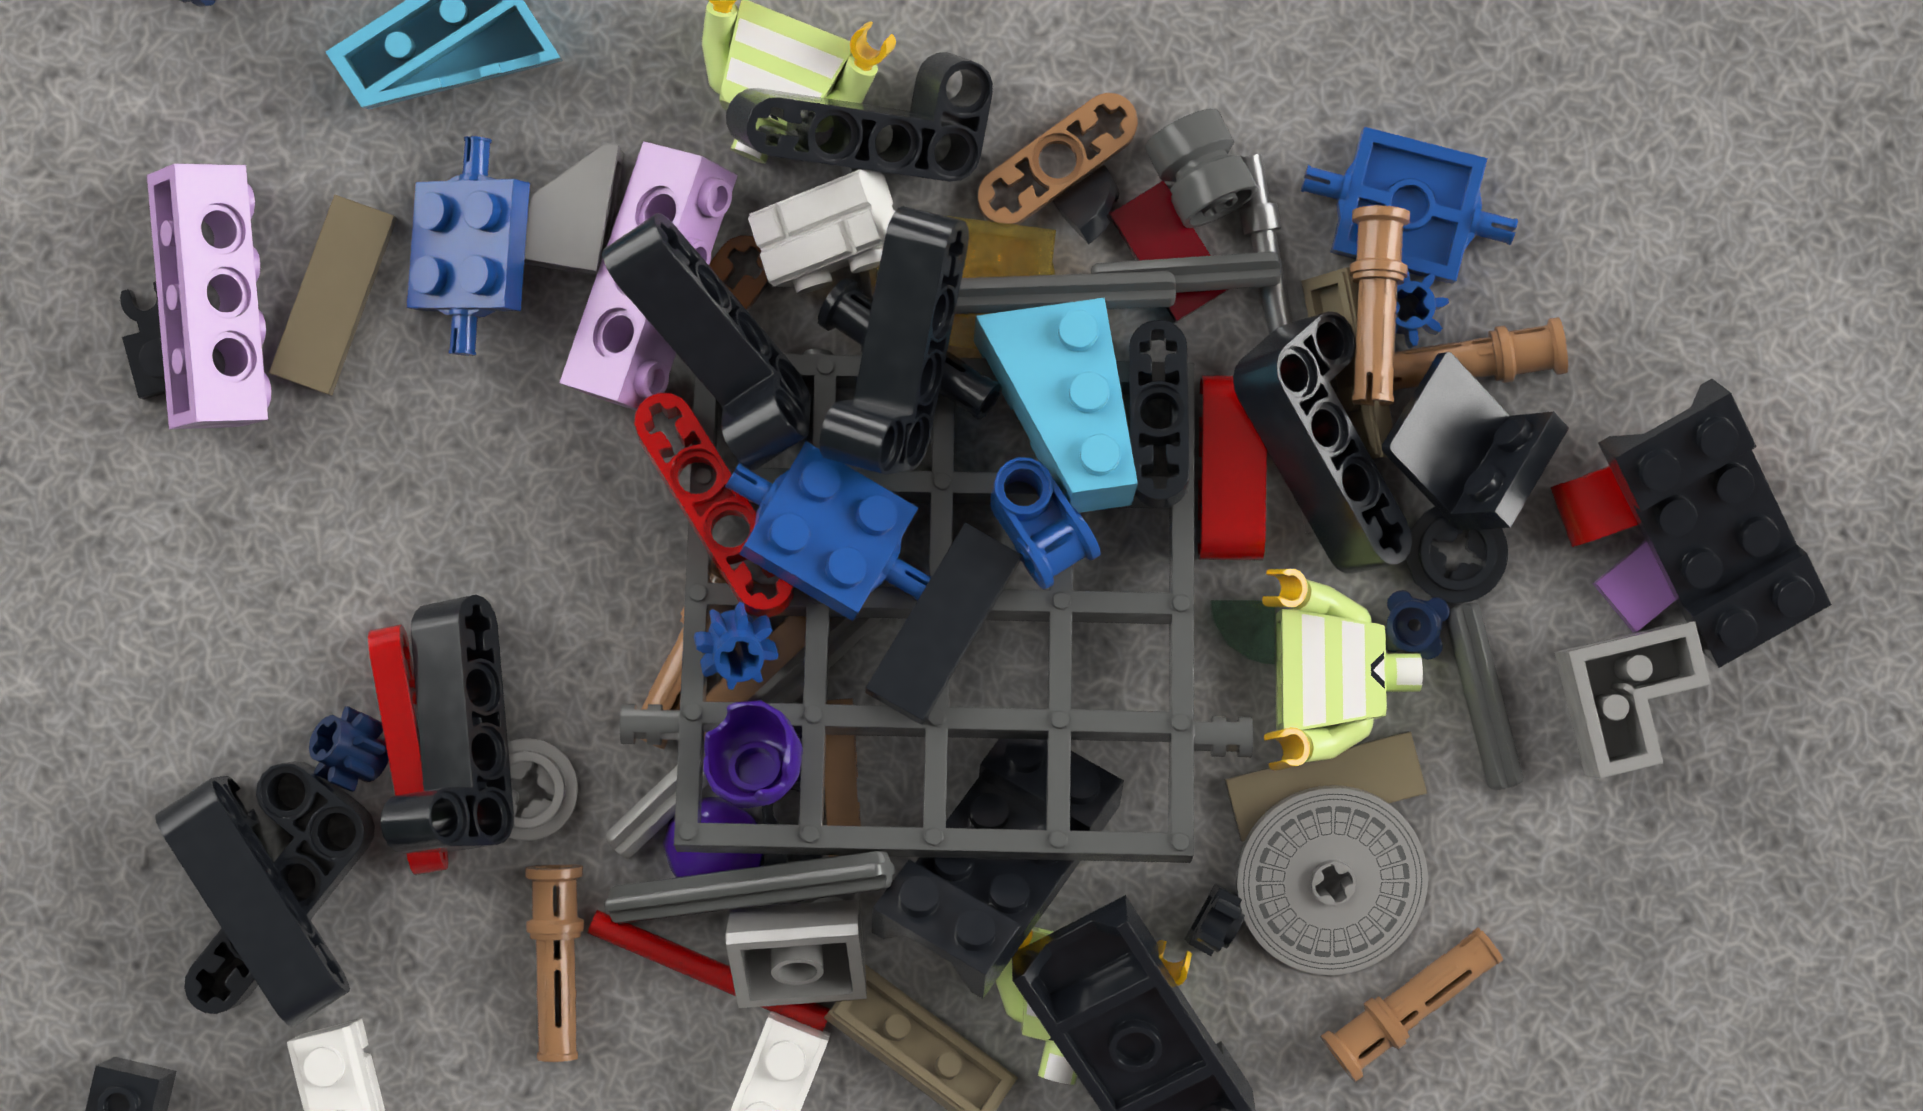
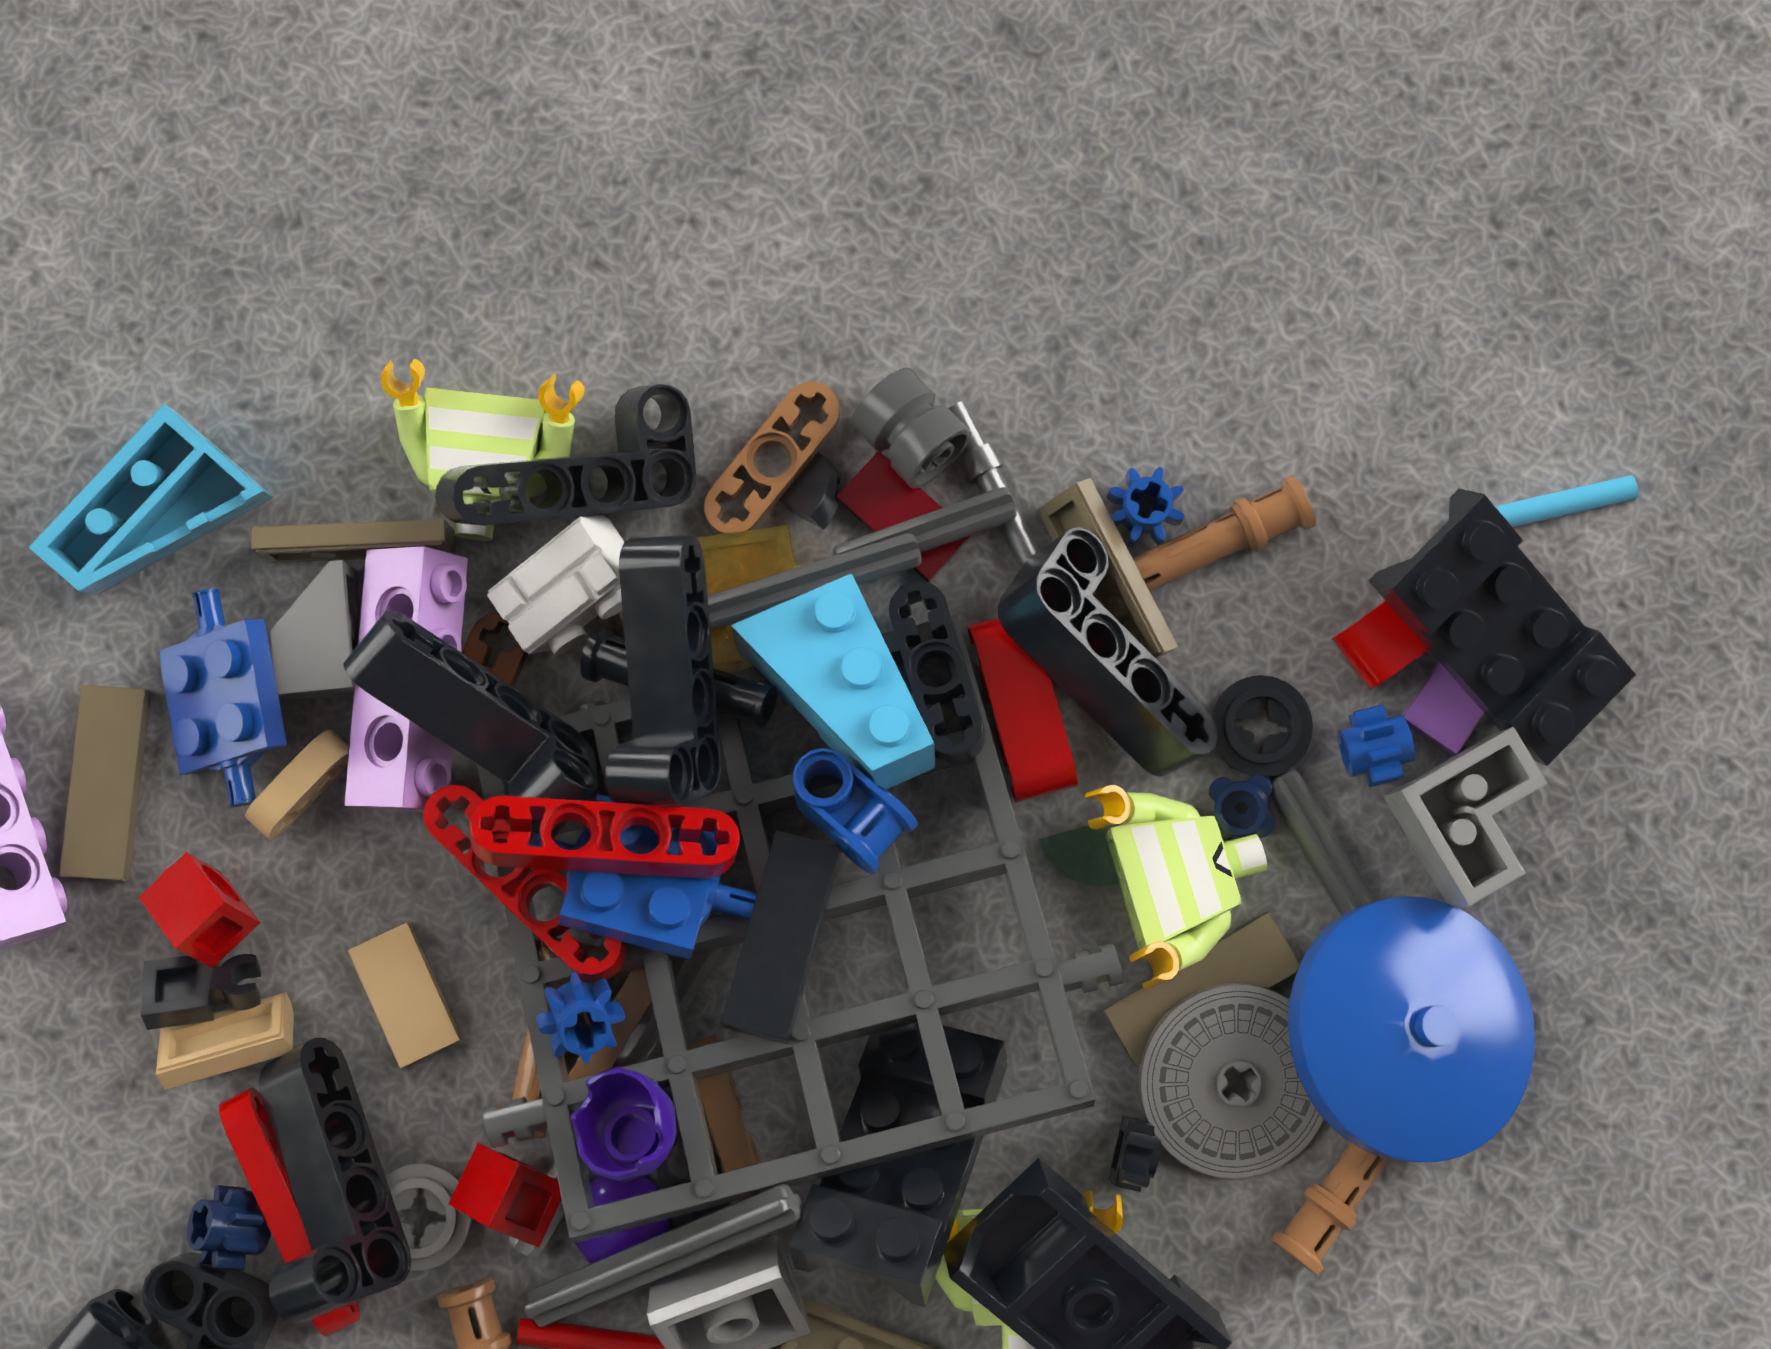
camera: 15 degrees left, 5 degrees down
(365, 514) = (187, 990): none -> black plate
(388, 573) = (226, 1043): none -> tan tile
(395, 443) = (199, 910): none -> red brick
(519, 349) = (298, 784): none -> tan beam
(567, 578) = (405, 995): none -> tan tile
(619, 791) = (507, 1195): none -> red brick
(629, 126) = (348, 540): none -> dark tan tile
(807, 473) = (604, 849): none -> red beam
(1378, 274) = (1109, 479): medium nougat pin -> none
(1427, 180) = (1118, 409): blue plate -> none
(1468, 449) = (1243, 625): black bracket -> none
(1512, 878) = (1411, 1029): none -> blue dish
(1561, 602) = (1376, 745): none -> blue gear
(1817, 417) = (1570, 501): none -> medium azure bar

